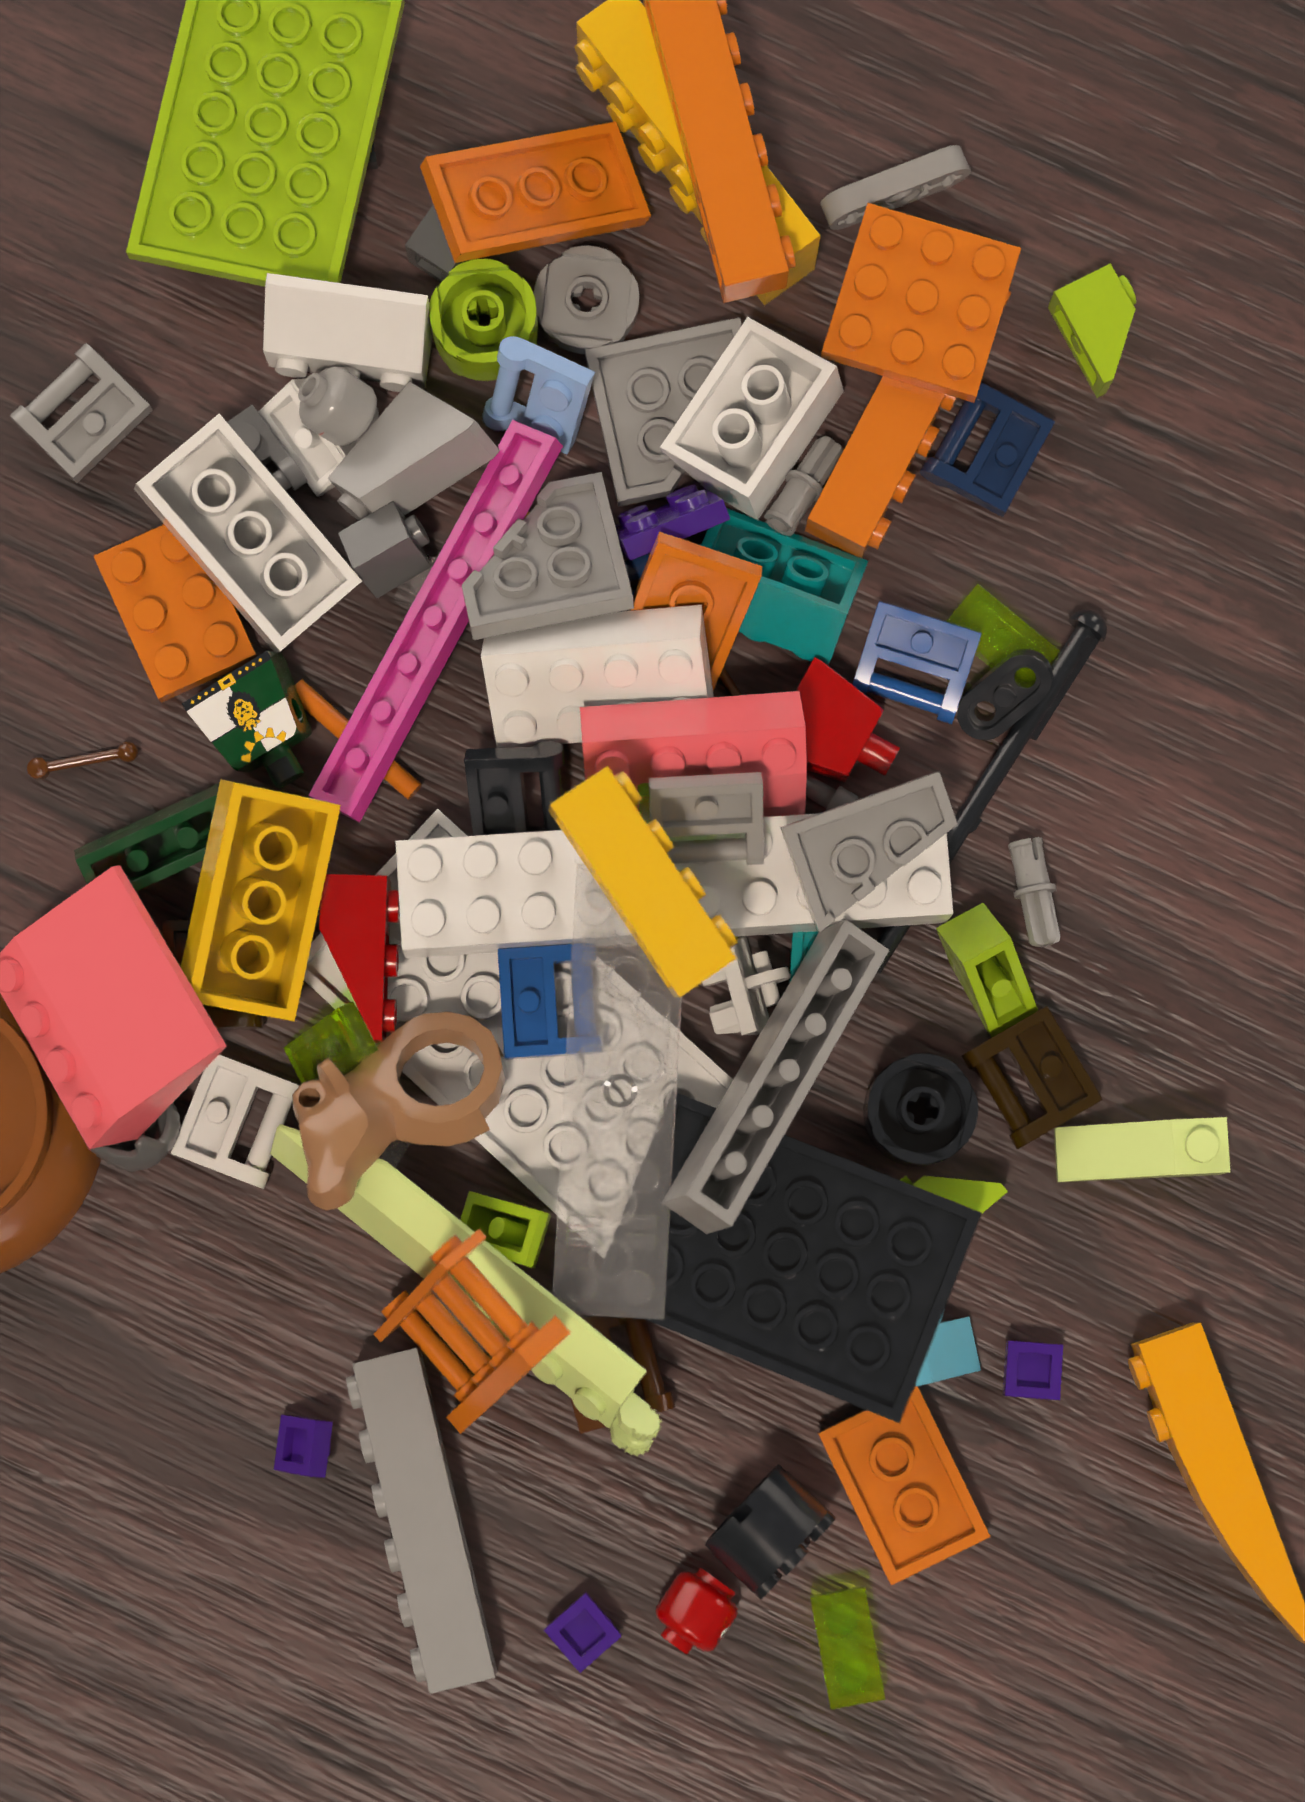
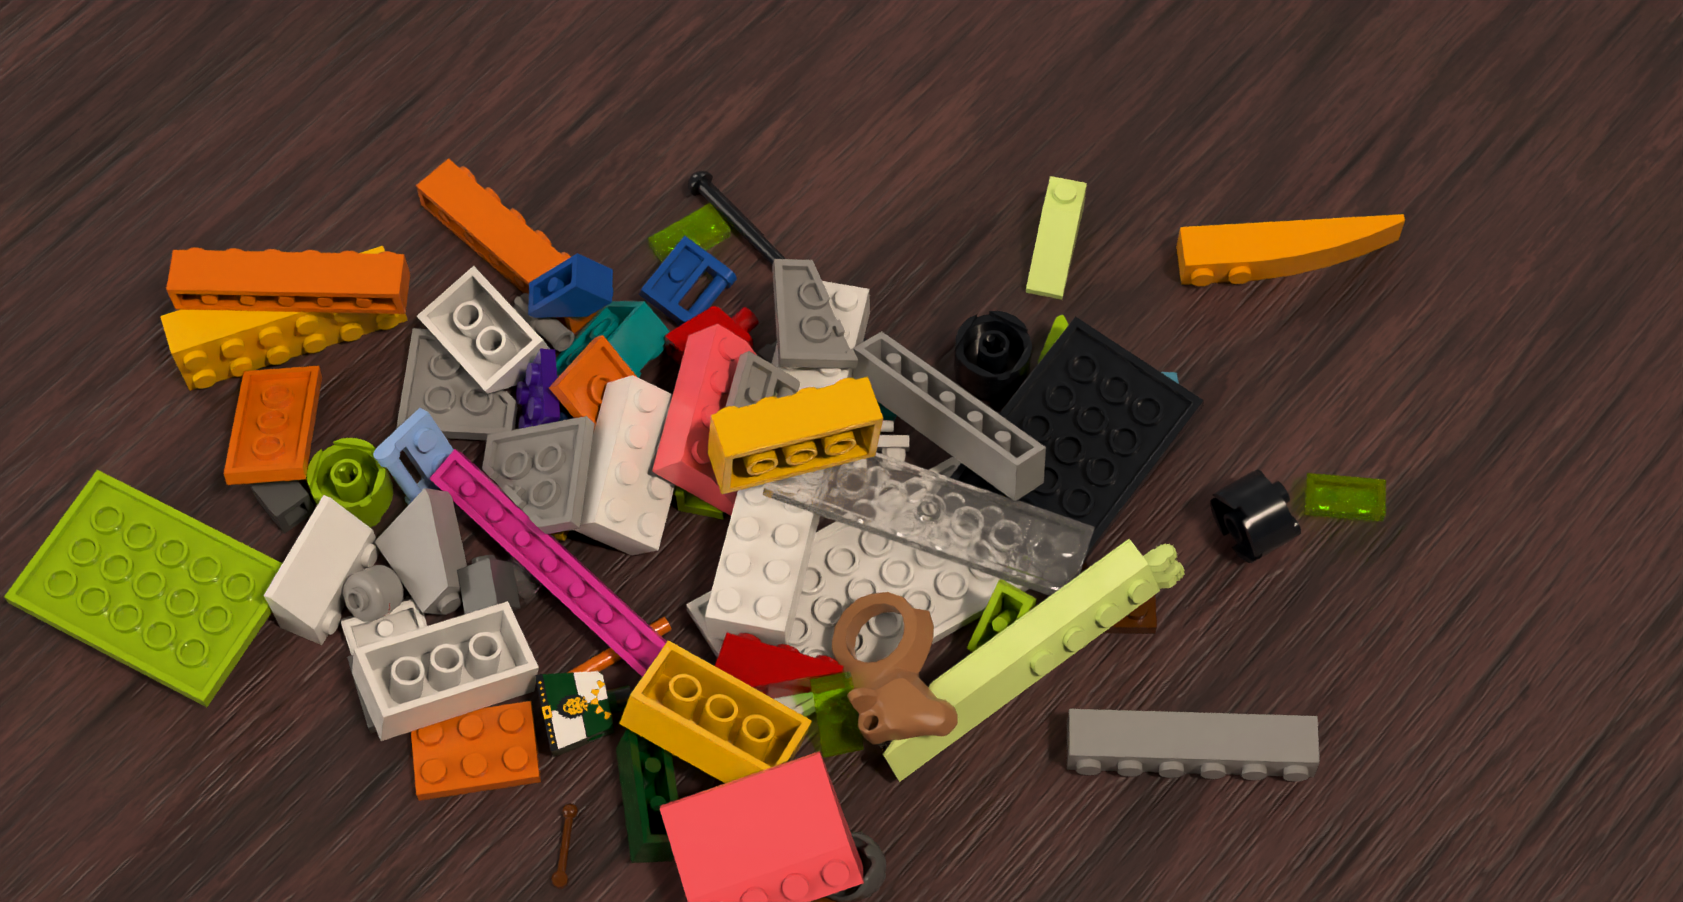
camera: 70 degrees left, 20 degrees down
(92, 424) = (318, 772): light grey plate -> none
(219, 1116) = (865, 811): white plate -> none
(303, 1446) = (1118, 812): dark purple plate -> none
(498, 786) = (685, 553): black plate -> none
(509, 1359) = (1108, 653): orange fence -> none
(530, 1000) = (845, 571): blue plate -> none
(566, 278) = (354, 404): light grey plate -> none
(583, 1632) = (1296, 660): dark purple plate -> none
(696, 1611) = (1299, 583): red head -> none
(836, 510) = (571, 289): none -> blue slope
(896, 186) = (361, 210): light grey beam -> none
(904, 1488) = (1245, 436): orange plate -> none
(920, 302) = (449, 211): orange plate -> none
(988, 968) = (908, 295): lime slope -> none
(1001, 458) = (567, 201): dark blue plate -> none
(1006, 692) = (730, 237): black plate -> none
(1032, 1370) = (1184, 339): dark purple plate -> none
(1035, 891) = (865, 257): light grey axle -> none
(1048, 1069) = (989, 279): dark brown plate -> none
(1095, 322) = (504, 126): lime slope -> none

